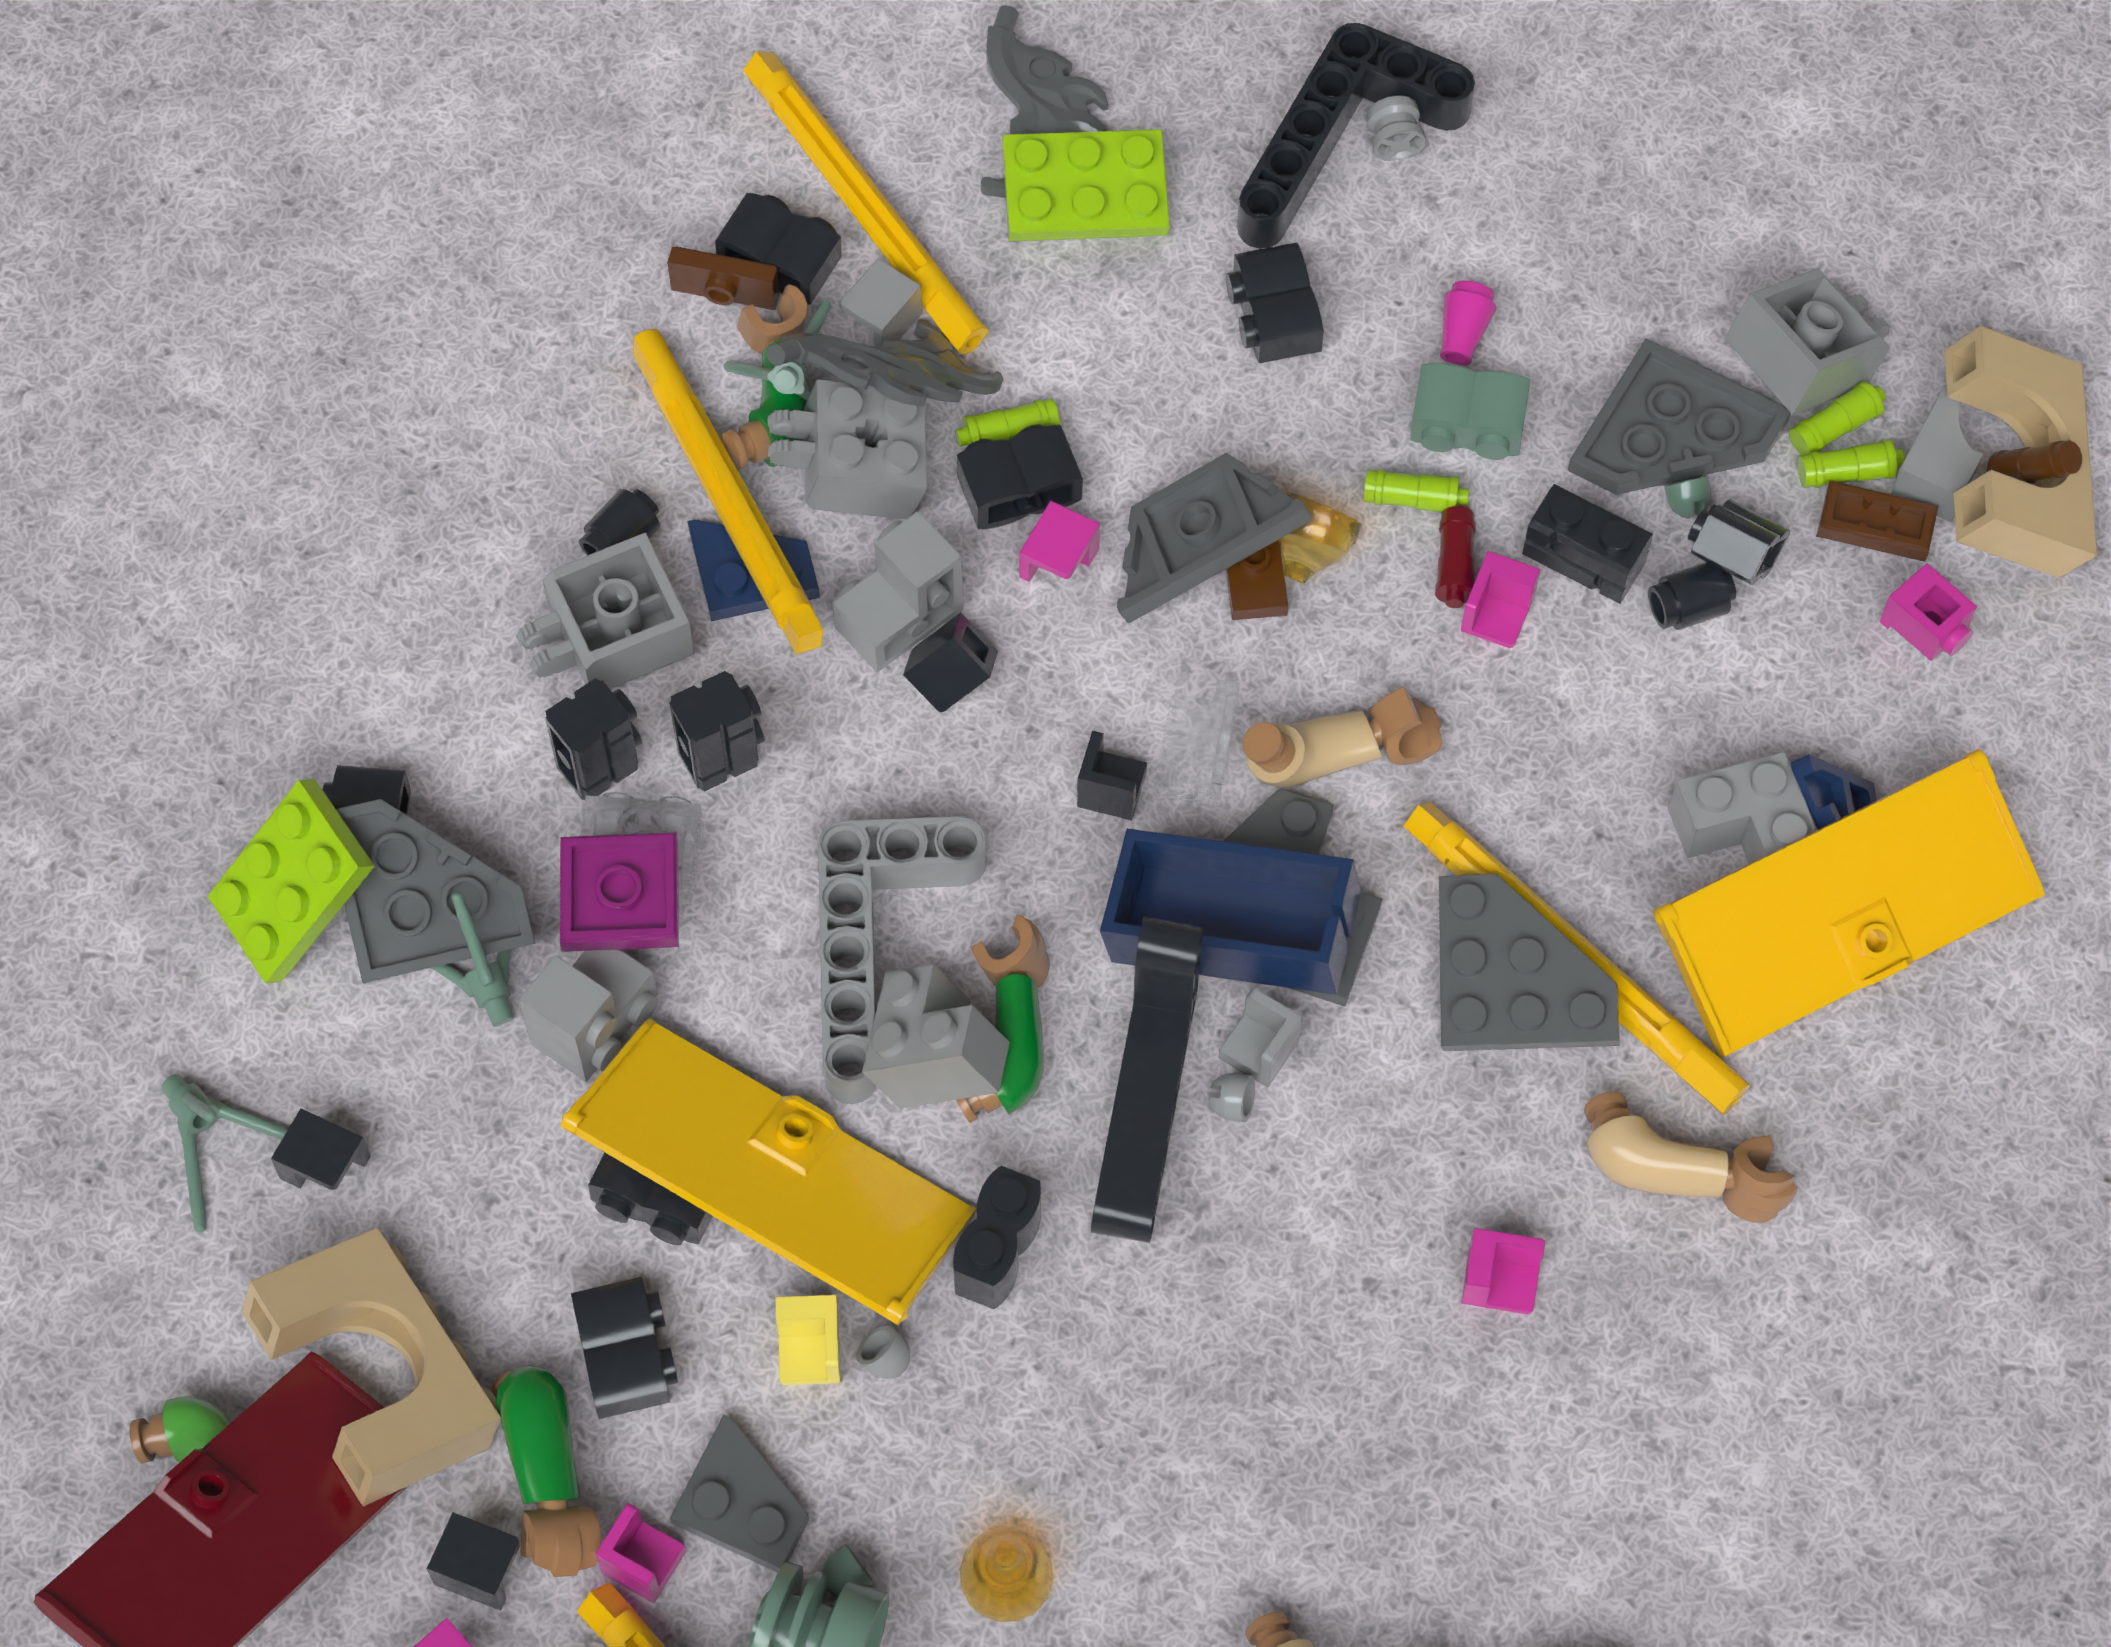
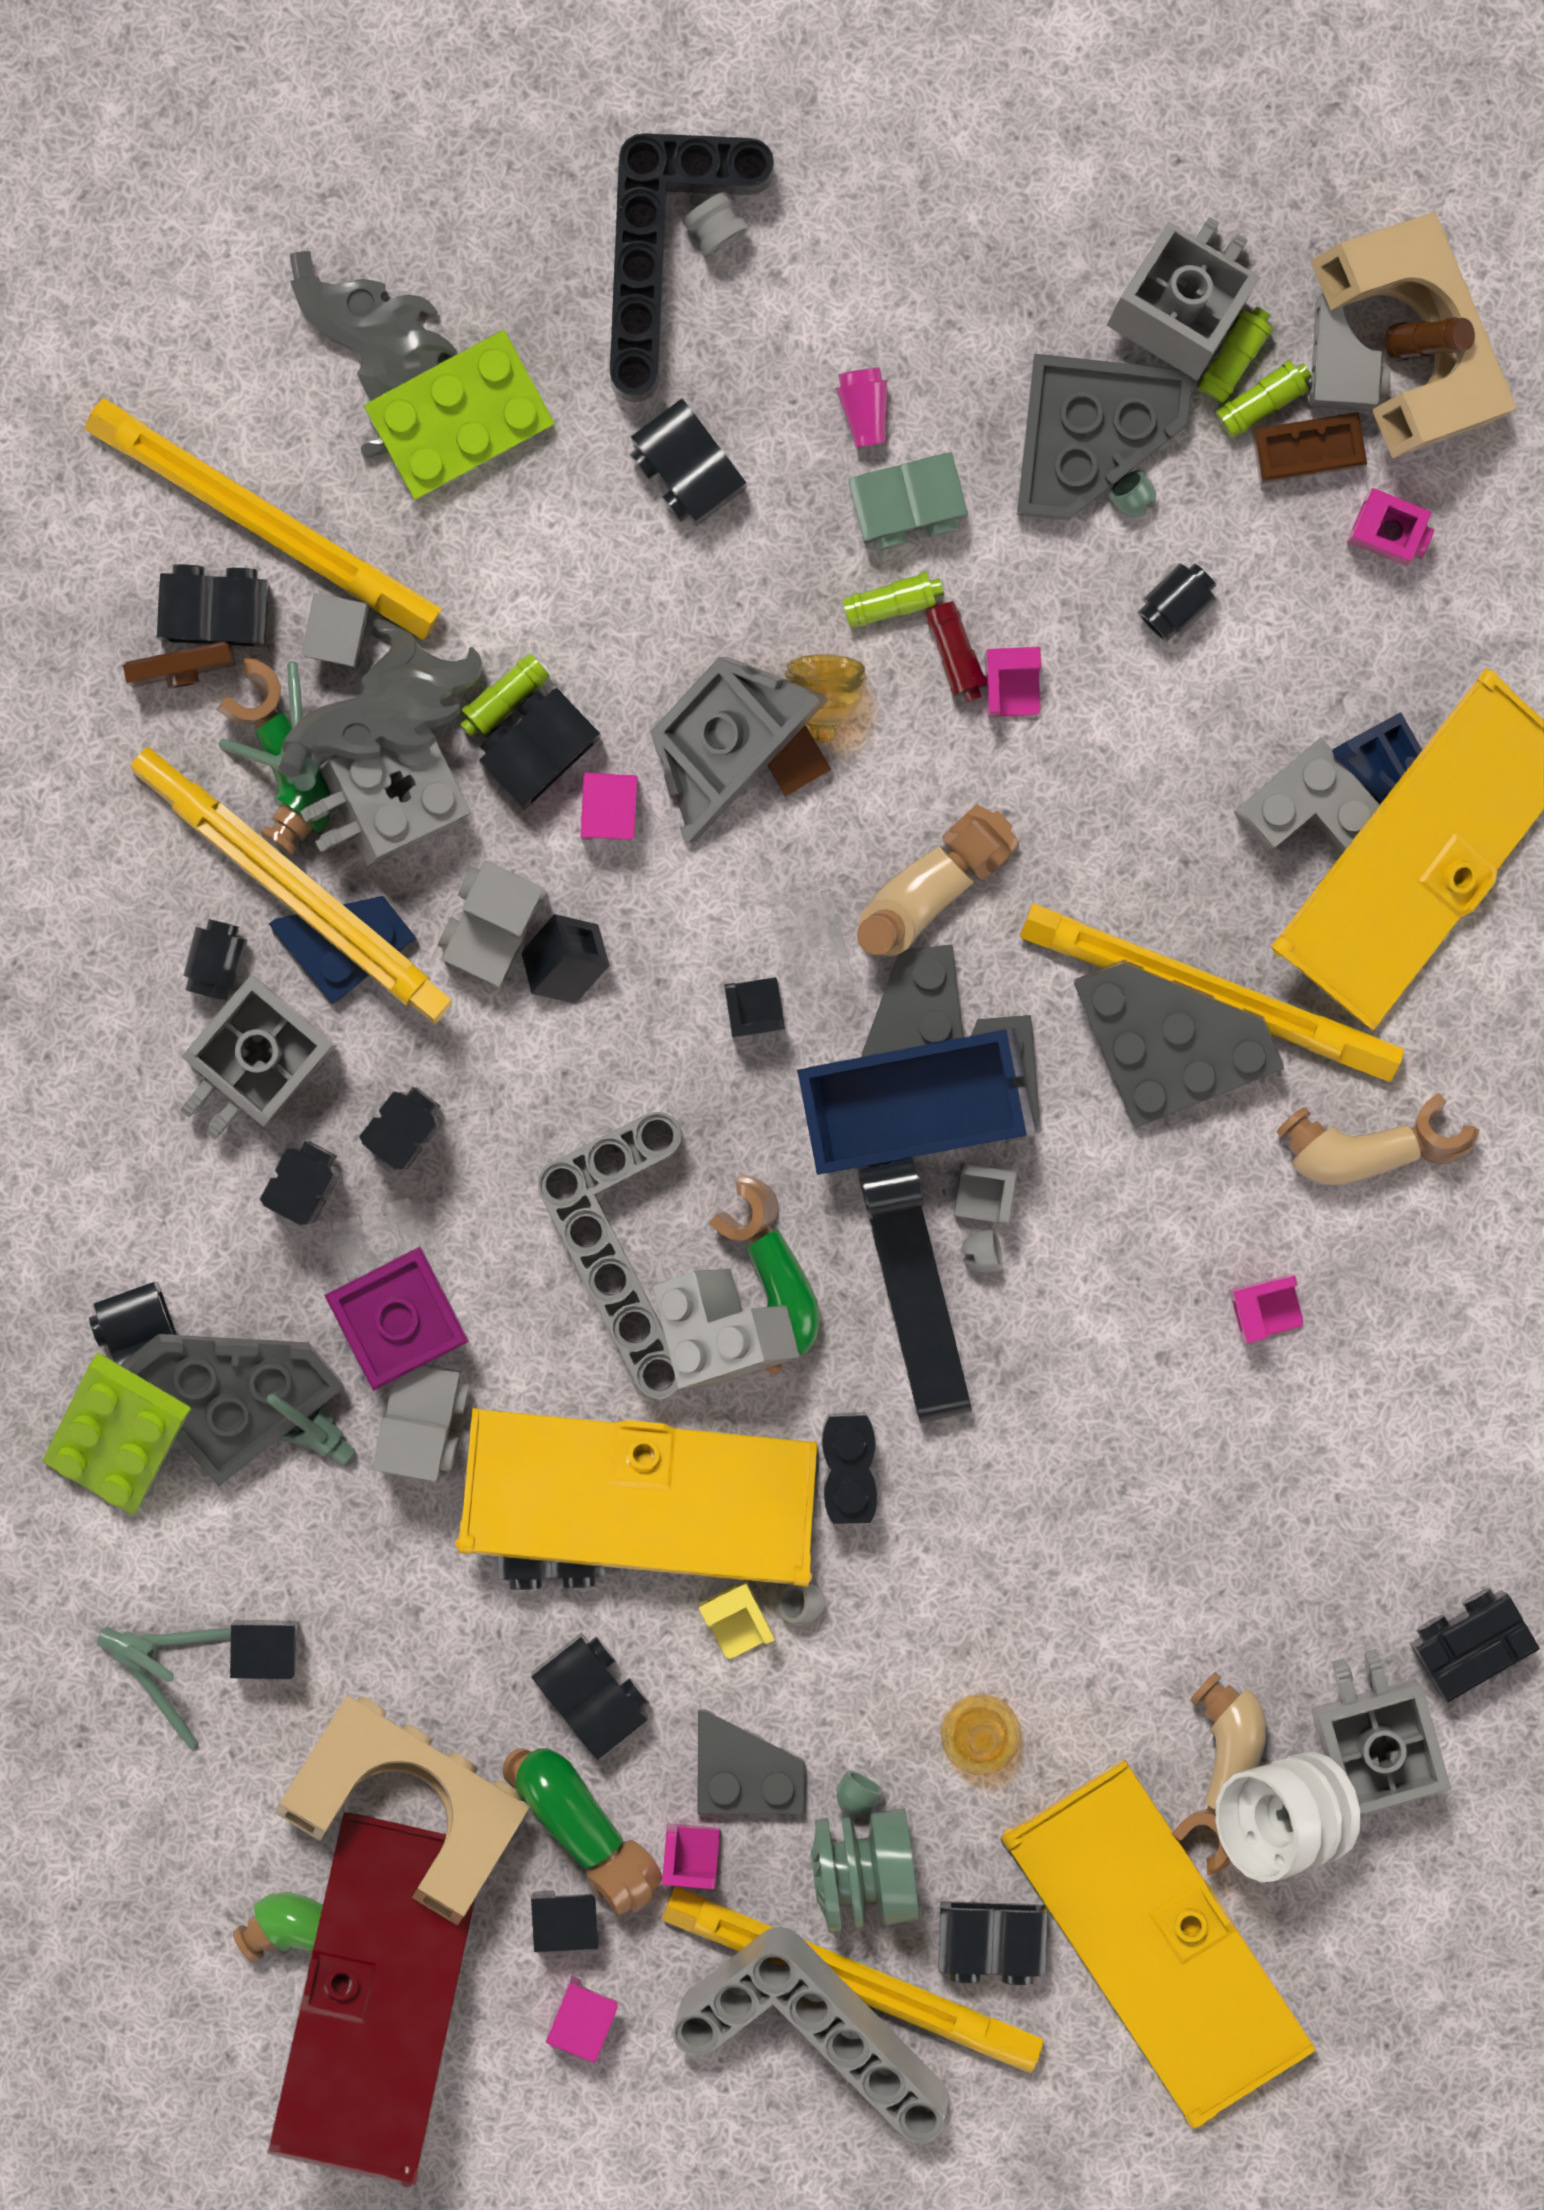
camera: 20 degrees left, 25 degrees up
(1587, 543) = (1067, 592): black brick -> none
(1738, 540) = (1200, 539): brick -> none

